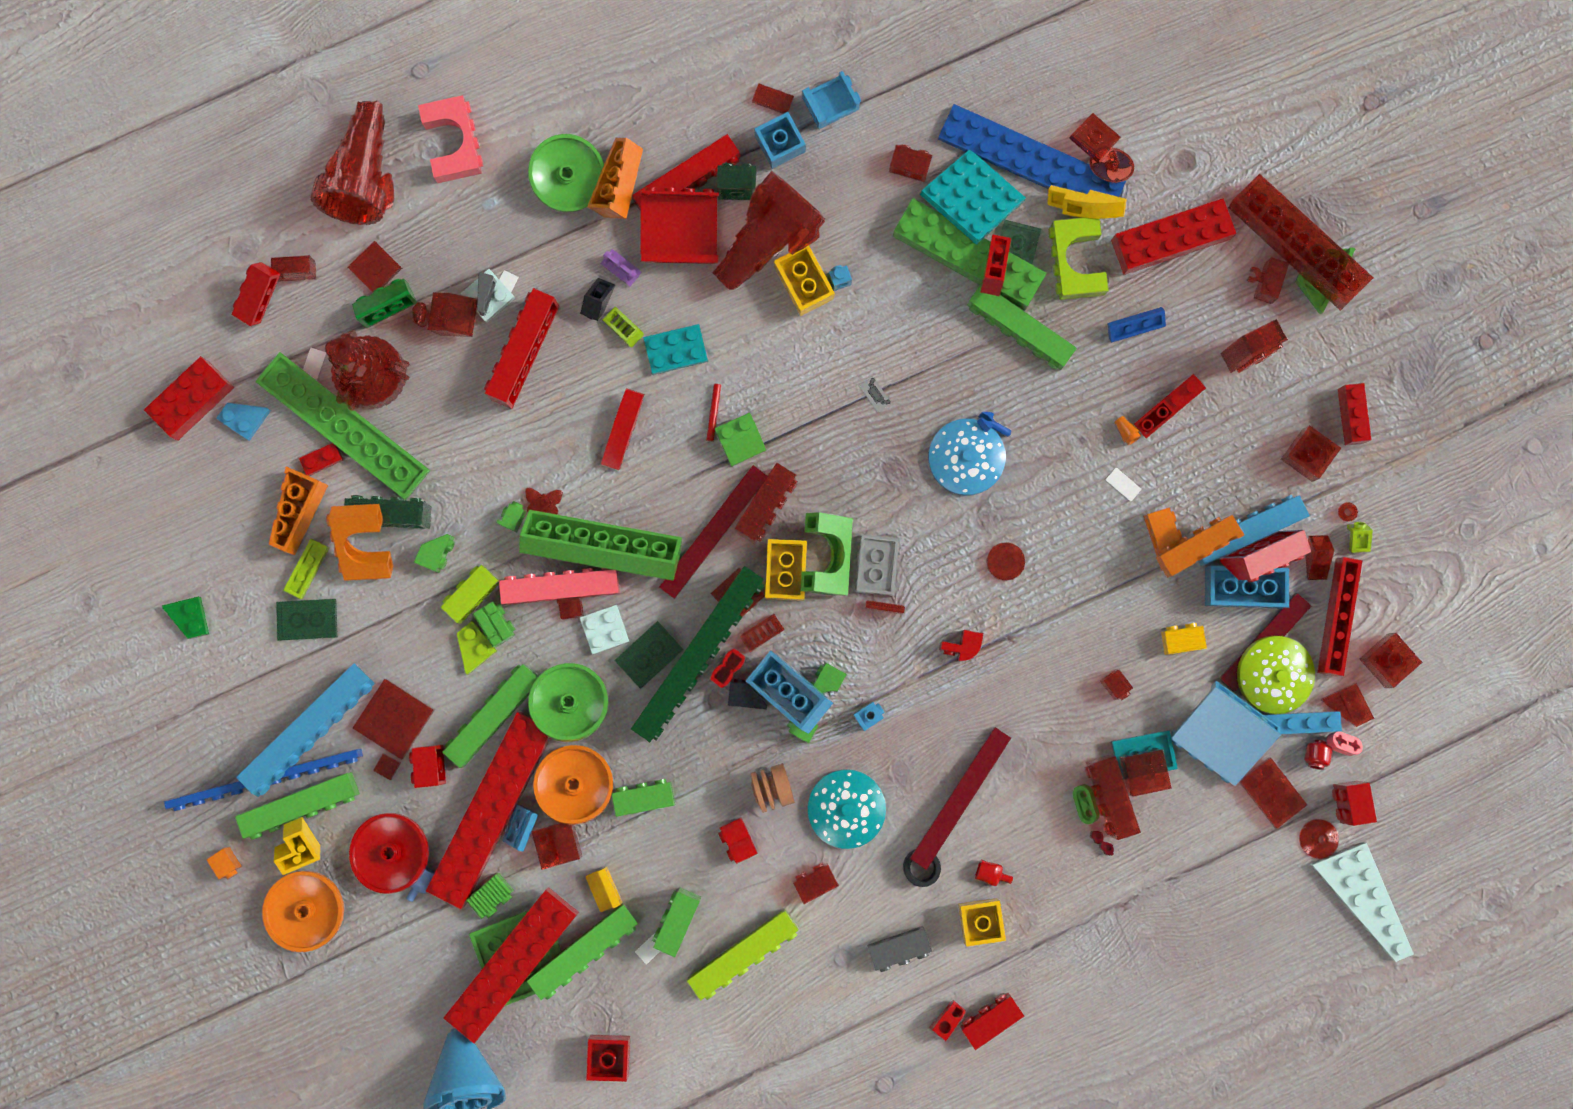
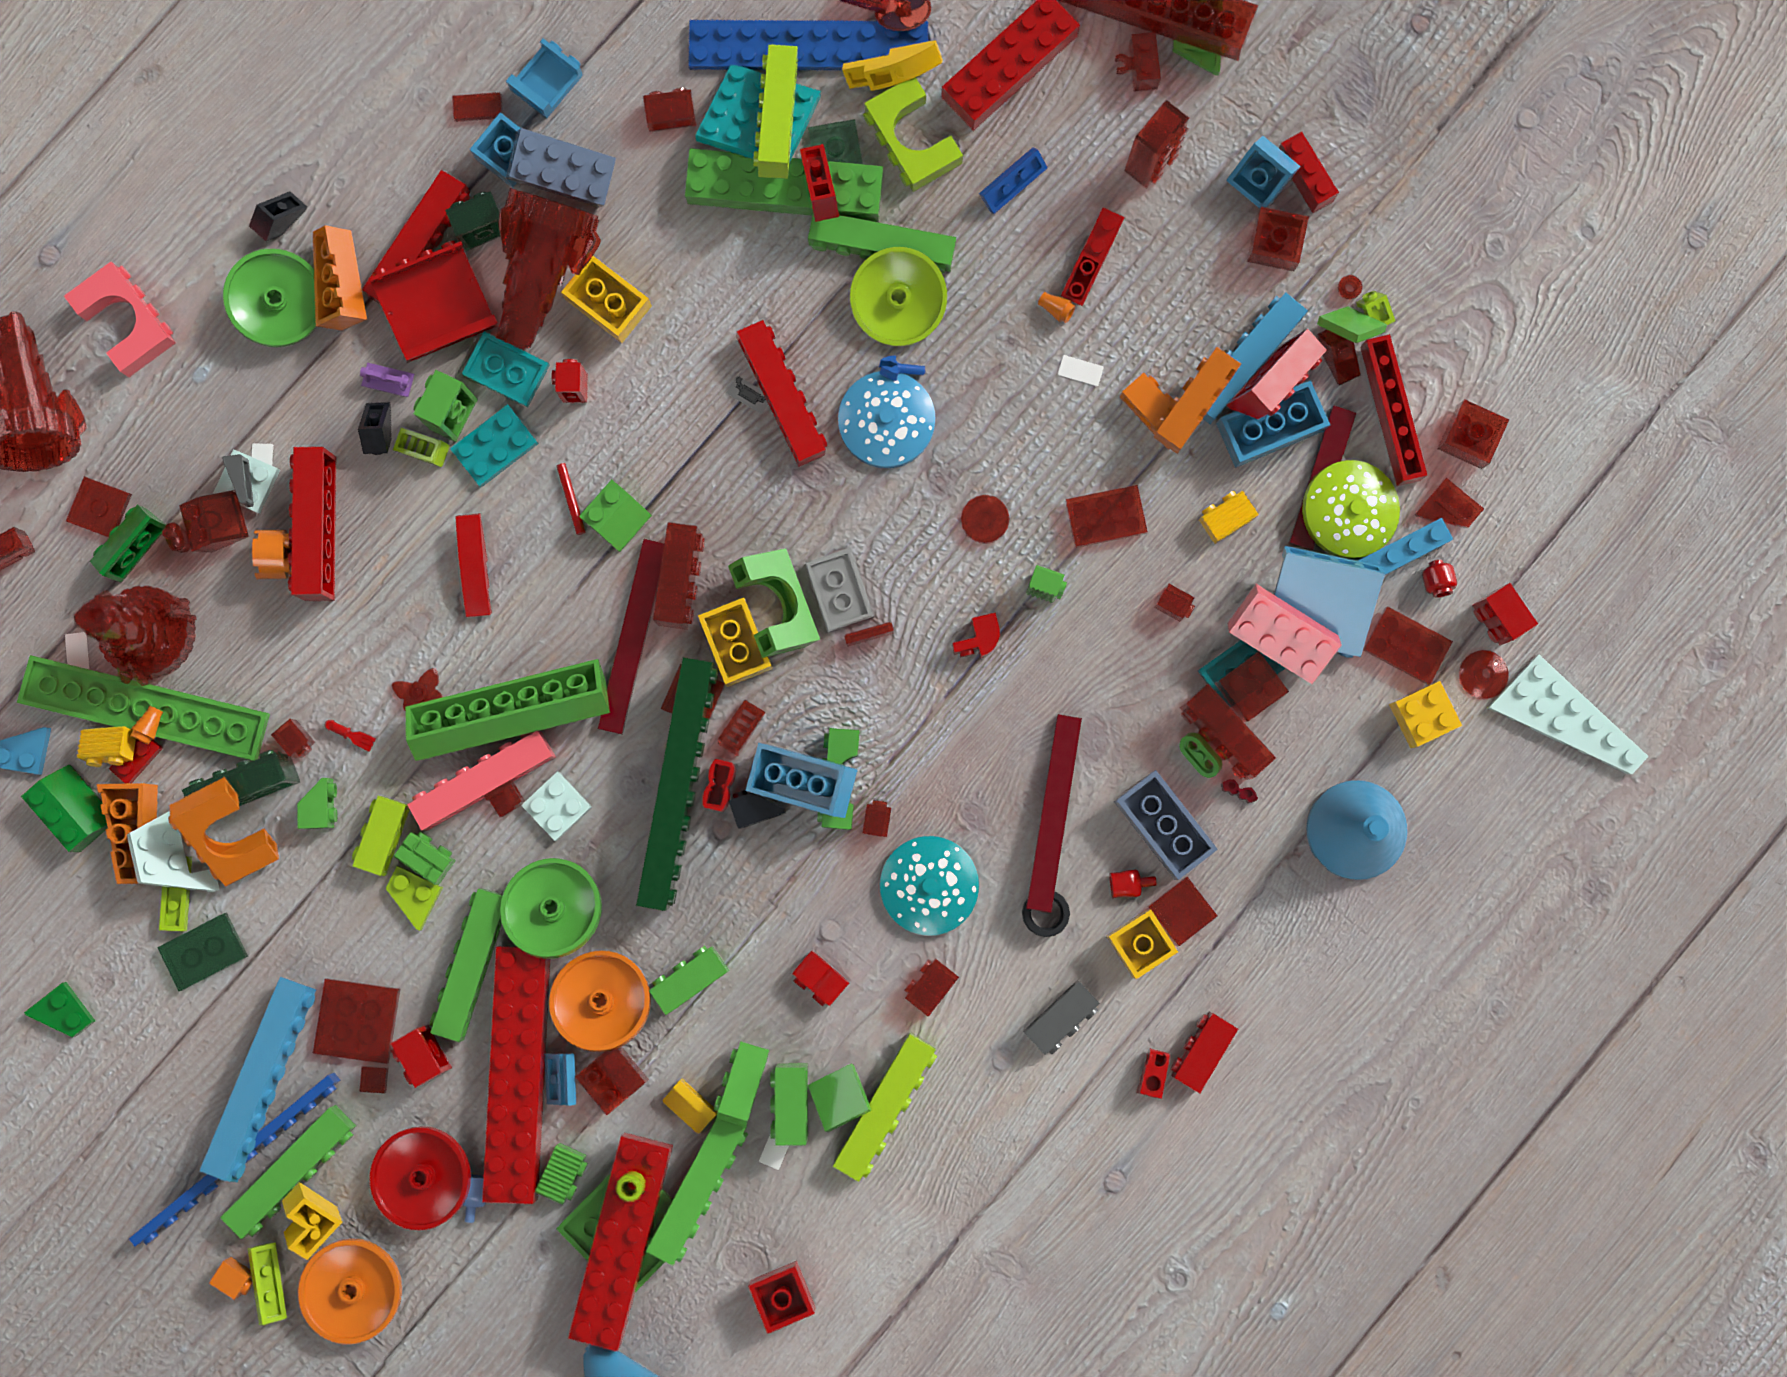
camera: 20 degrees left, 0 degrees up
(246, 878) = (267, 1283): none -> lime plate
(257, 473) = (67, 808): none -> green slope
(305, 441) = (106, 745): none -> yellow brick
(308, 539) = (161, 858): none -> light aqua wing
(340, 440) = (147, 725): none -> orange cone
(439, 496) = (293, 739): none -> clear red brick
(483, 357) = (271, 554): none -> orange brick
(487, 519) = (358, 738): none -> red piece
(512, 516) = (390, 724): bright green brick -> none
(531, 933) = (625, 1191): none -> lime brick
(594, 114) = (276, 215): none -> black slope
(648, 891) = (741, 1084): none -> bright green brick
(649, 655) = (621, 812): clear green tile -> none
(654, 305) = (445, 405): none -> bright green brick
(708, 298) = (505, 369): none -> teal plate
(713, 933) = (839, 1098): none -> bright green tile
(751, 328) = (570, 381): none -> red brick
(772, 788) = (832, 899): nougat wheel -> none
(813, 171) = (560, 168): none -> sand blue brick
(830, 744) = (877, 819): none -> clear red brick
(839, 277) = (647, 278): dark azure brick -> none
(861, 715) = (903, 775): dark azure brick -> none
(899, 404) = (780, 393): none -> red brick
(988, 201) = (777, 111): none -> lime brick
(1015, 372) = (898, 296): none -> lime dish
(1021, 911) = (1182, 911): none -> clear red tile
(1029, 629) = (1046, 584): none -> bright green brick
(1037, 844) = (1165, 825): none -> sand blue brick
(1094, 599) = (1106, 516): none -> clear red plate
(1175, 910) = (1357, 830): none -> dark azure cone
(1187, 744) = (1284, 634): none -> coral brick
(1263, 849) = (1425, 715): none -> yellow brick
(1321, 401) = (1263, 173): none -> dark azure brick
(1337, 540) = (1351, 324): none -> bright green tile
(1345, 740) = (1461, 548): coral beam -> none

